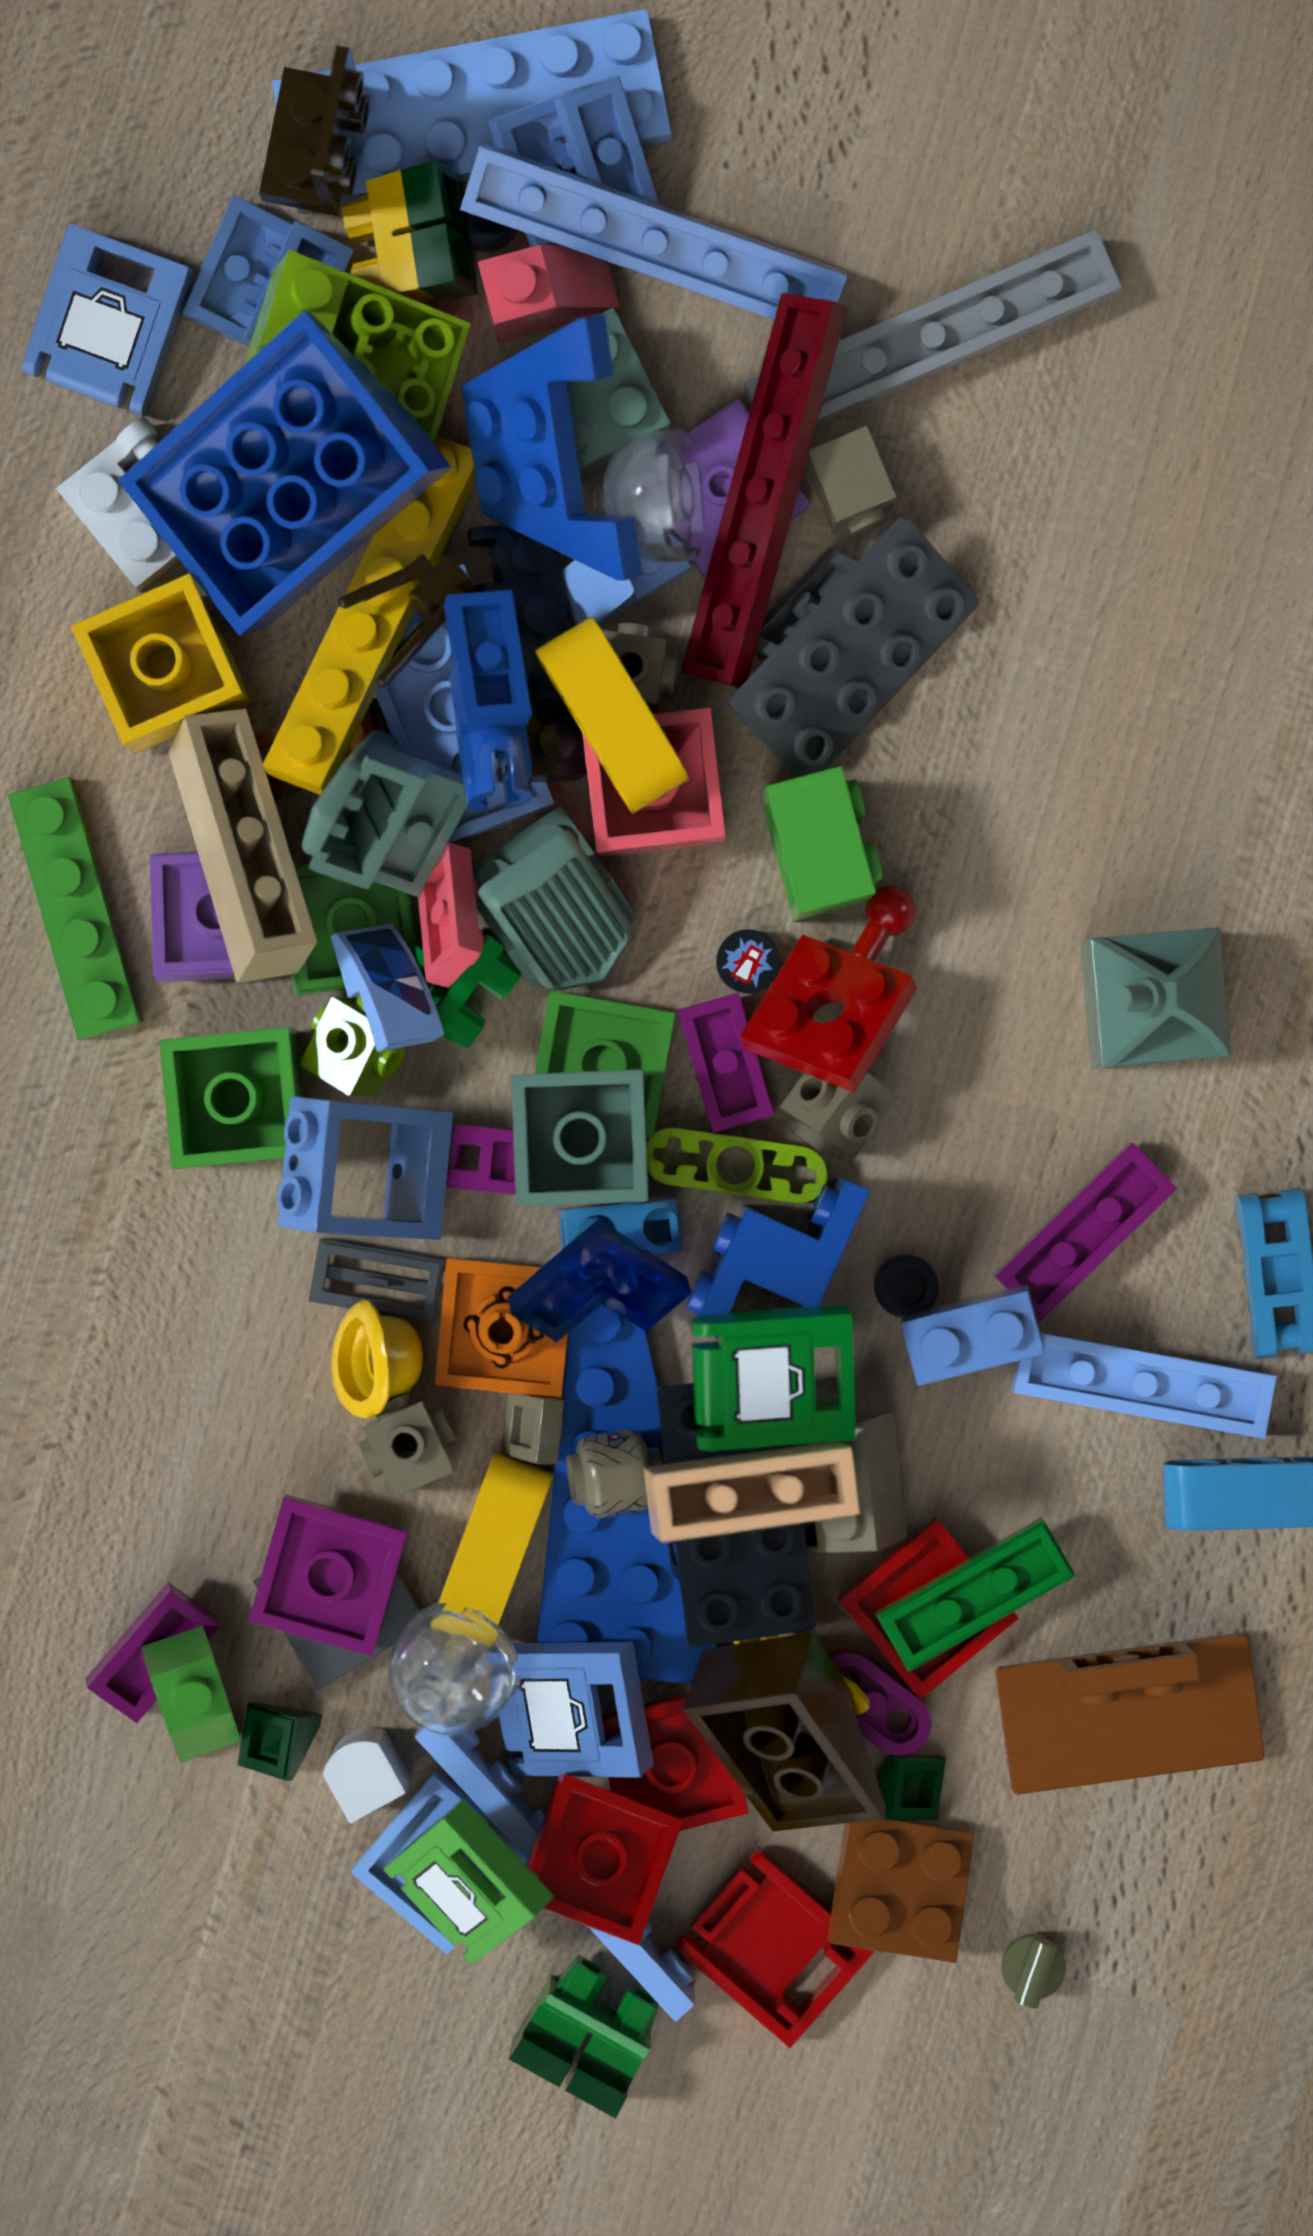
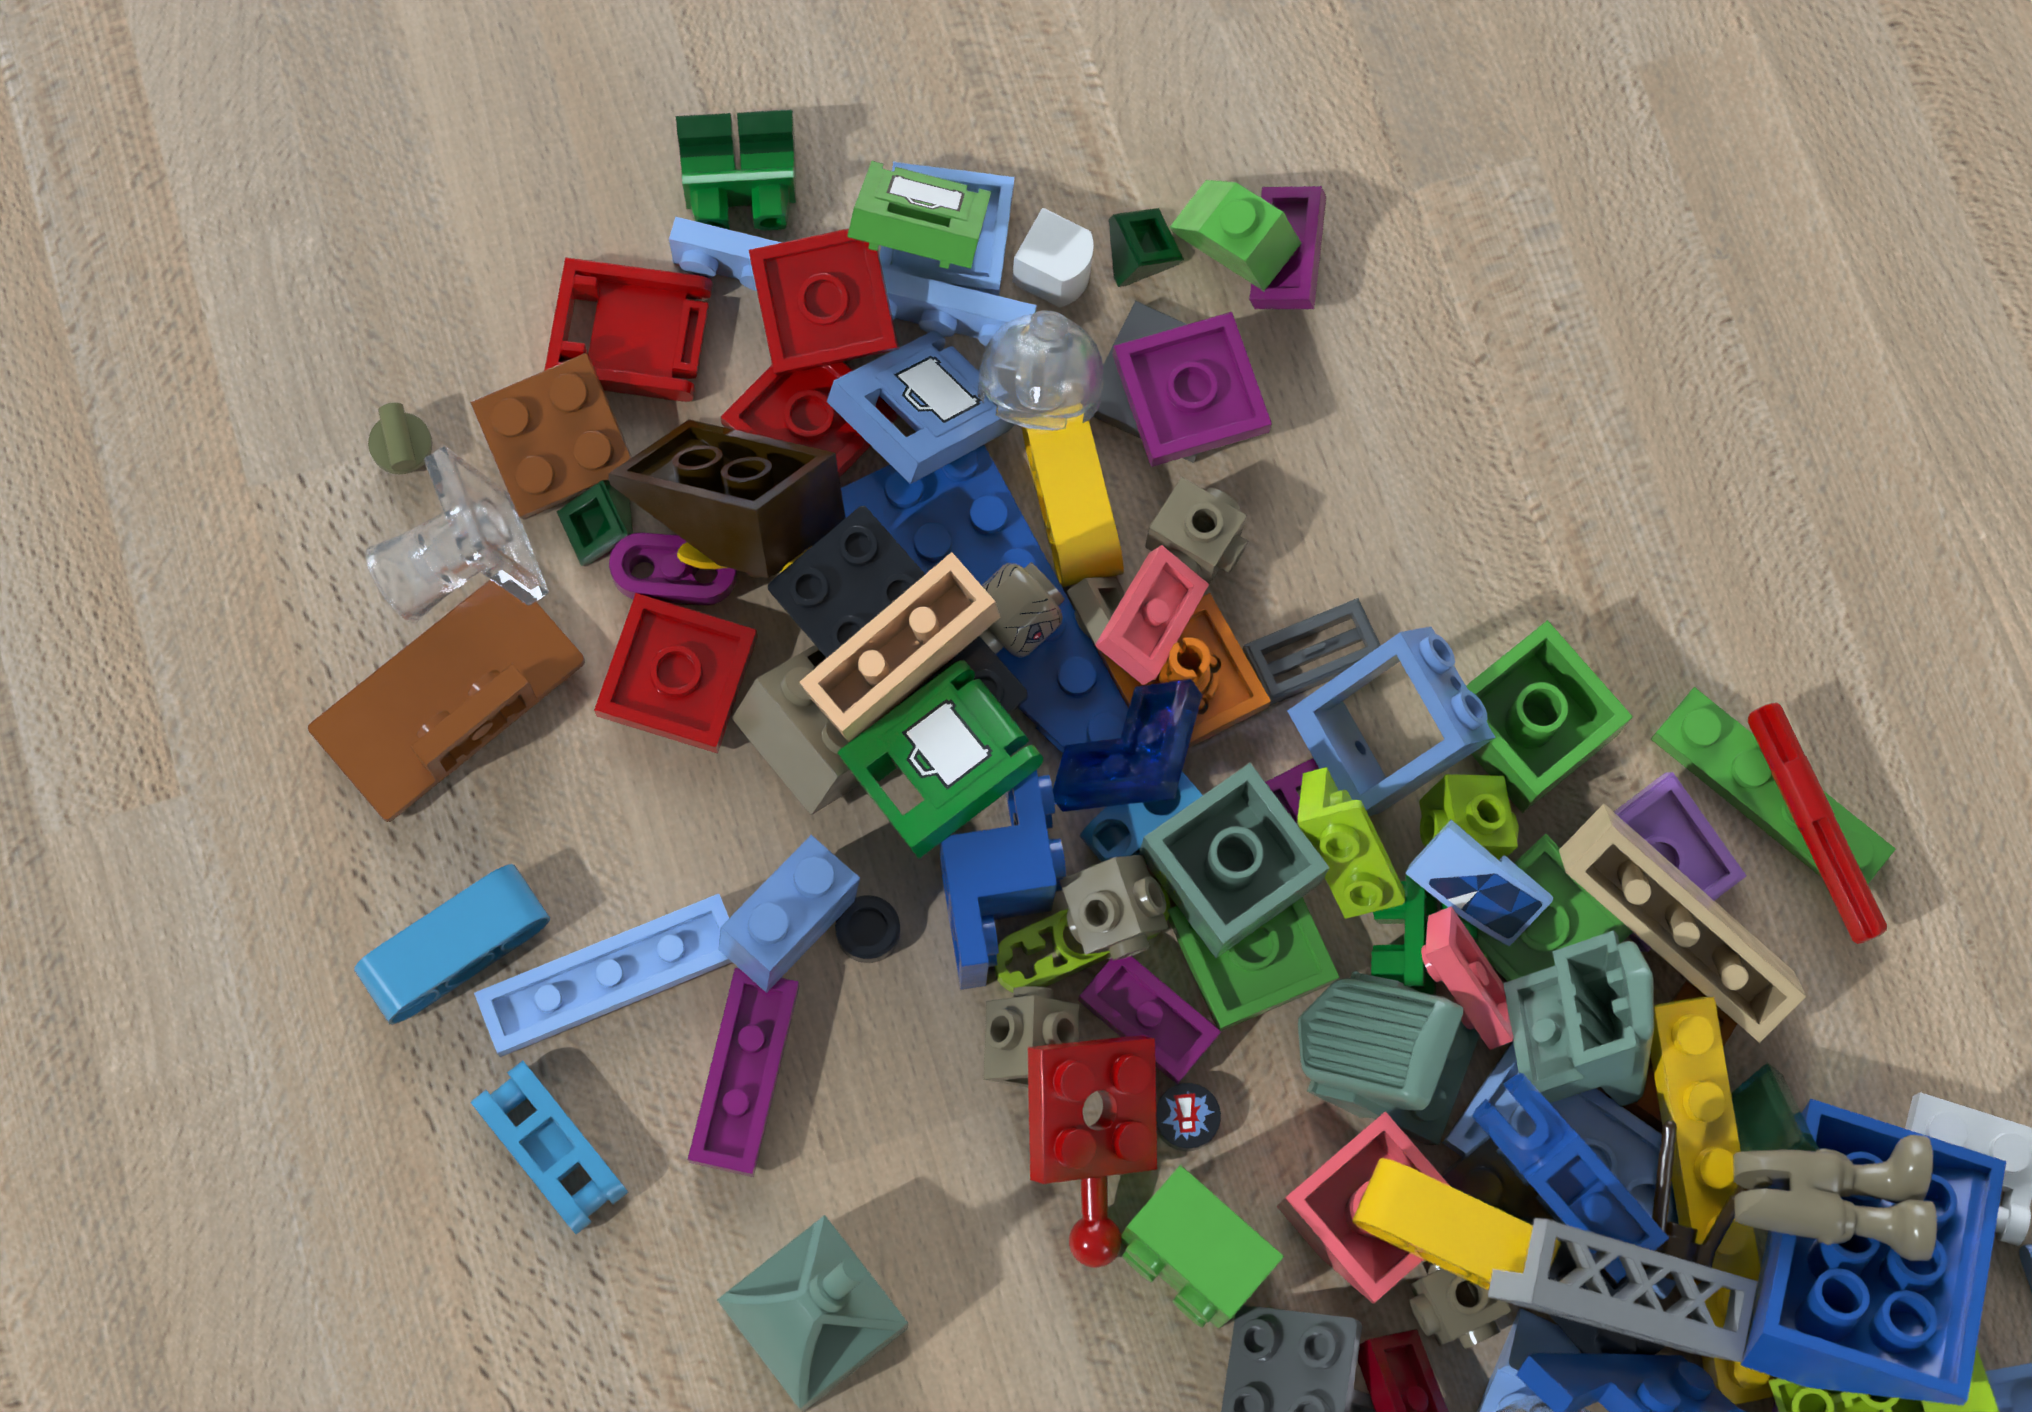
camera: 145 degrees right, 15 degrees down
(63, 855) = (1817, 823): none -> red axle
(160, 662) = (1855, 1034): yellow brick -> none
(288, 634) = (1769, 1114): none -> clear green tile
(308, 540) = (1805, 1189): none -> dark tan piece
(373, 1359) = (1271, 582): yellow hat -> none
(478, 1090) = (1348, 843): none -> lime bracket
(502, 1393) = (1152, 615): none -> coral plate
(513, 558) = (1618, 1312): none -> light grey fence
(702, 1163) = (1115, 906): none -> dark tan brick
(975, 1594) = (645, 704): green tile -> none
(1032, 1834) = (470, 537): none -> clear plant

